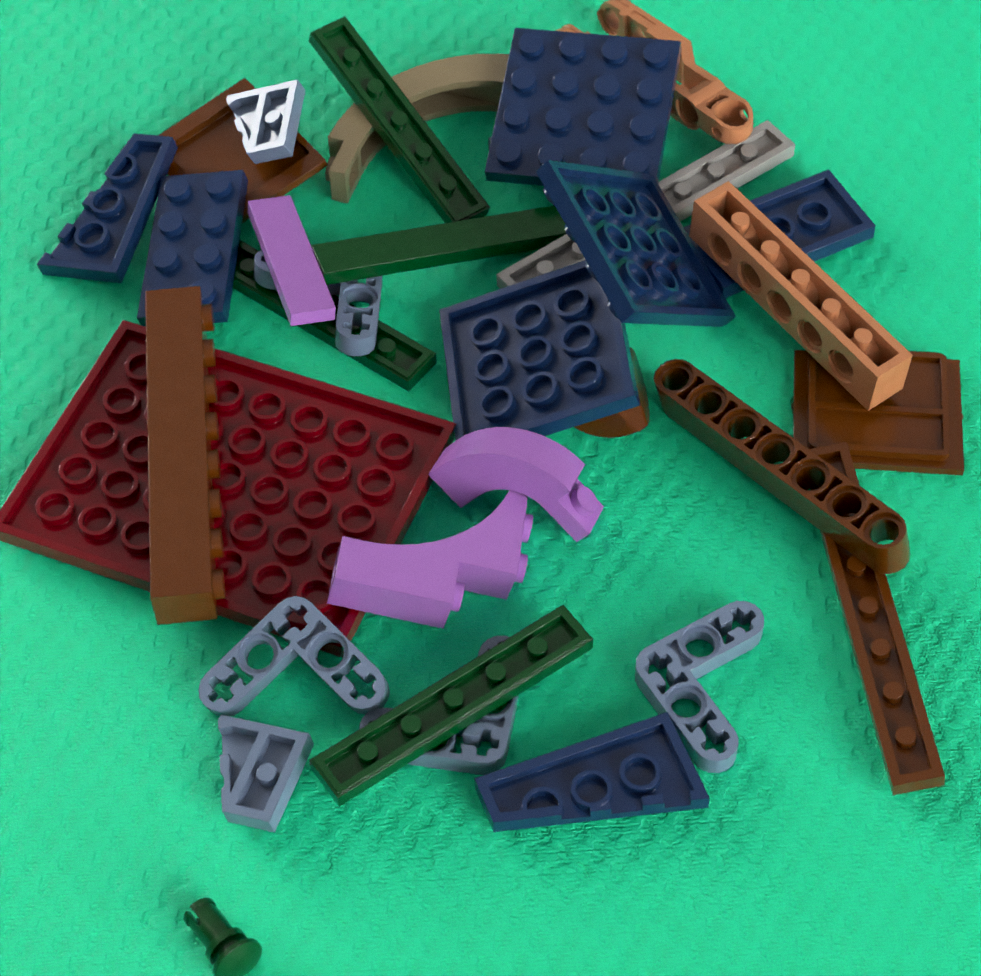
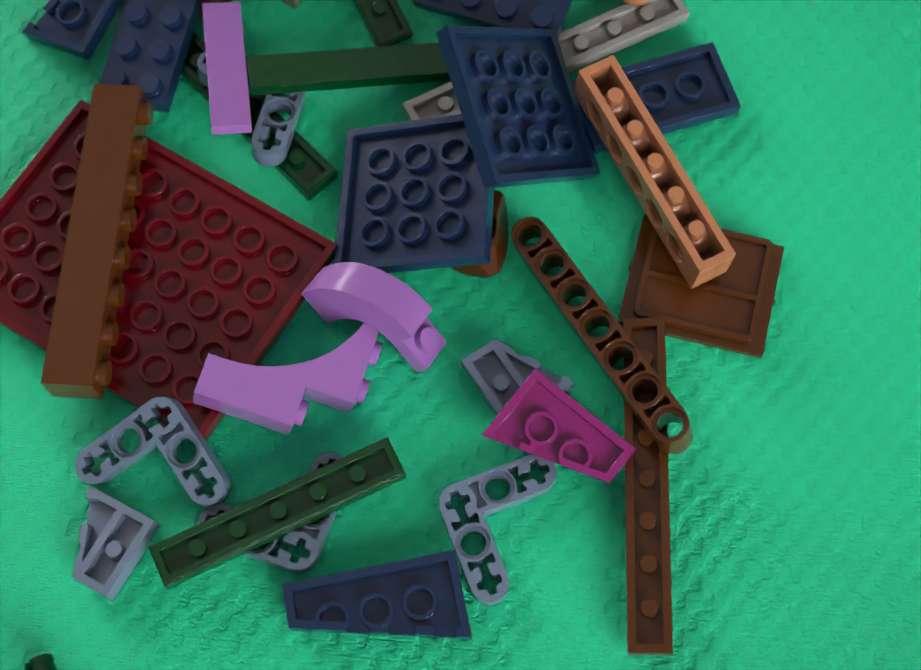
camera: 10 degrees right, 15 degrees up
(690, 535) = (500, 372): none -> sand blue wing
(758, 568) = (559, 429): none -> magenta wing

